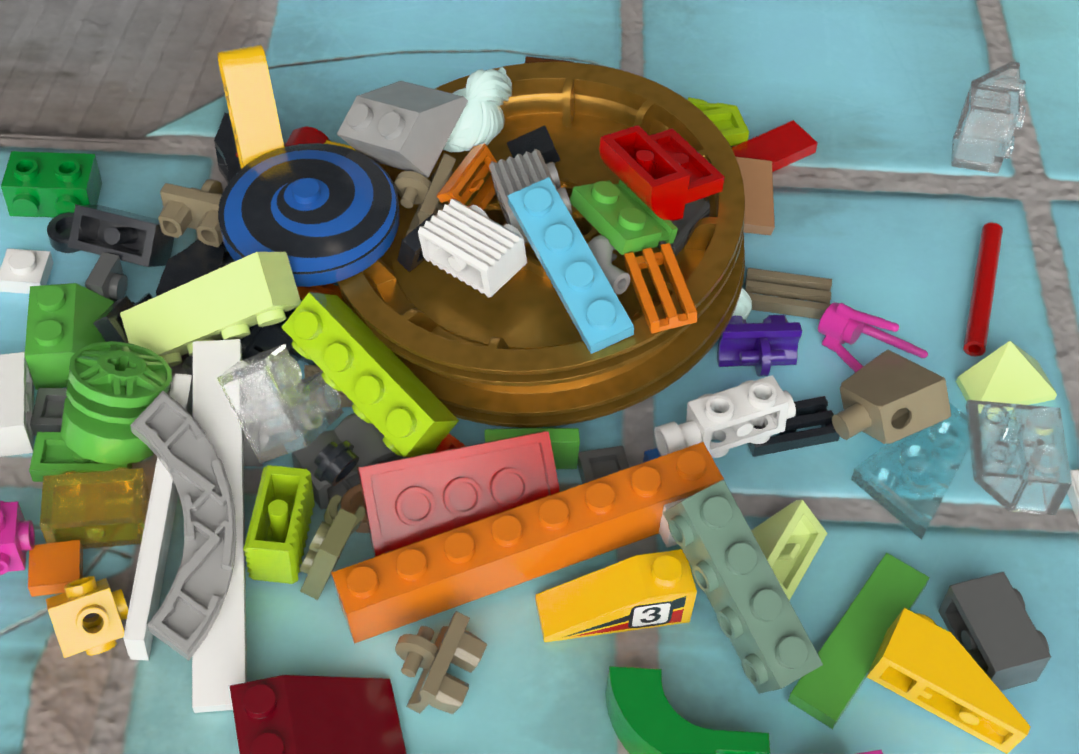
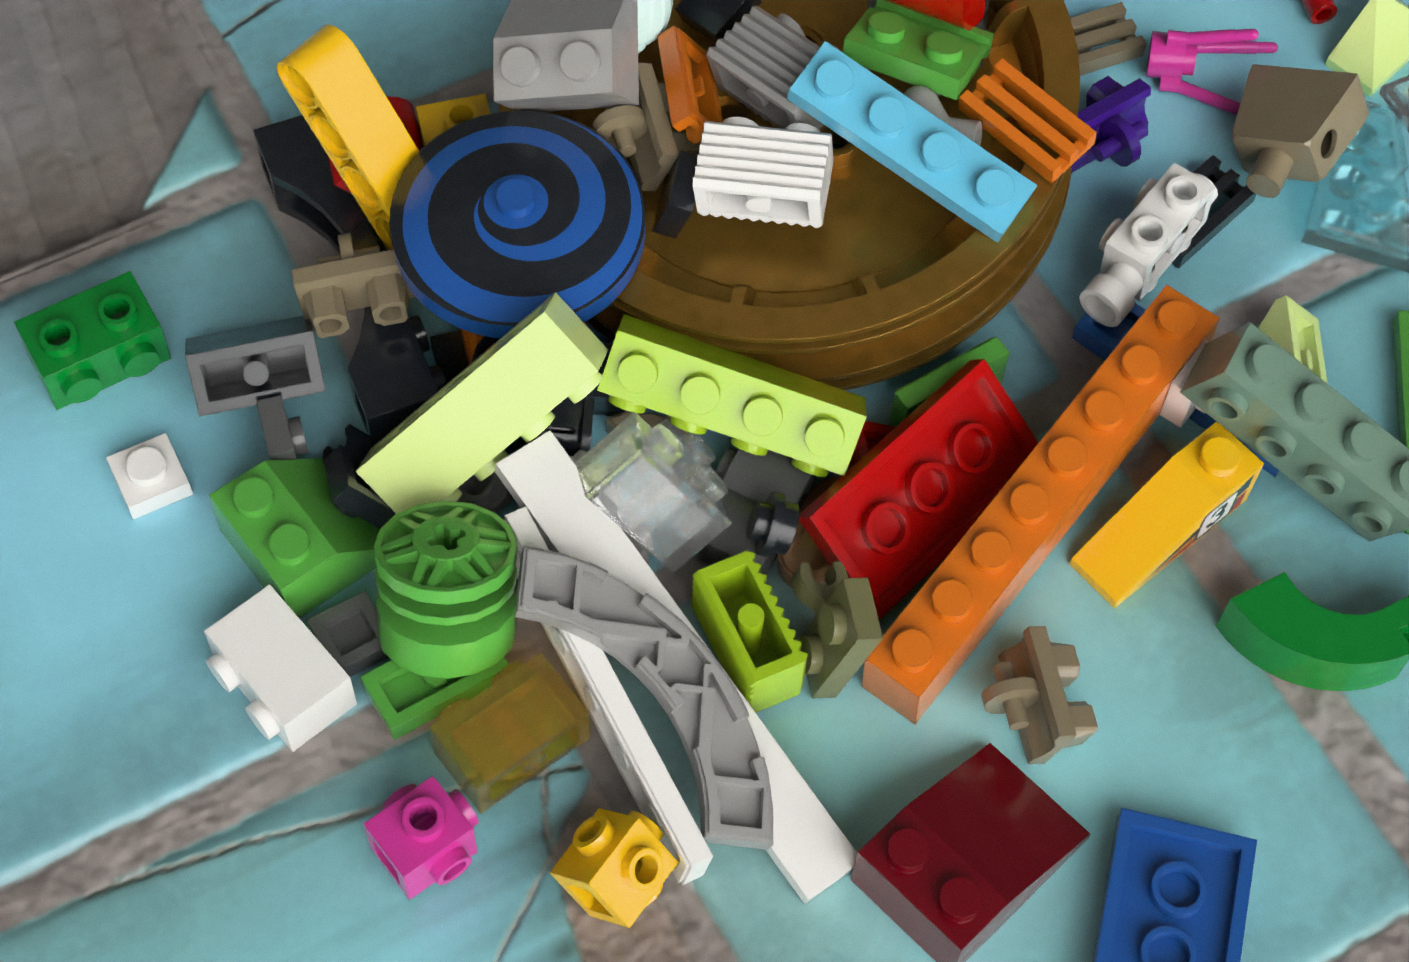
camera: 30 degrees left, 10 degrees up
(54, 567) = (514, 829): orange tile -> none
(59, 232) = (162, 393): black tile -> none
(601, 462) = (1042, 373): dark grey tile -> none

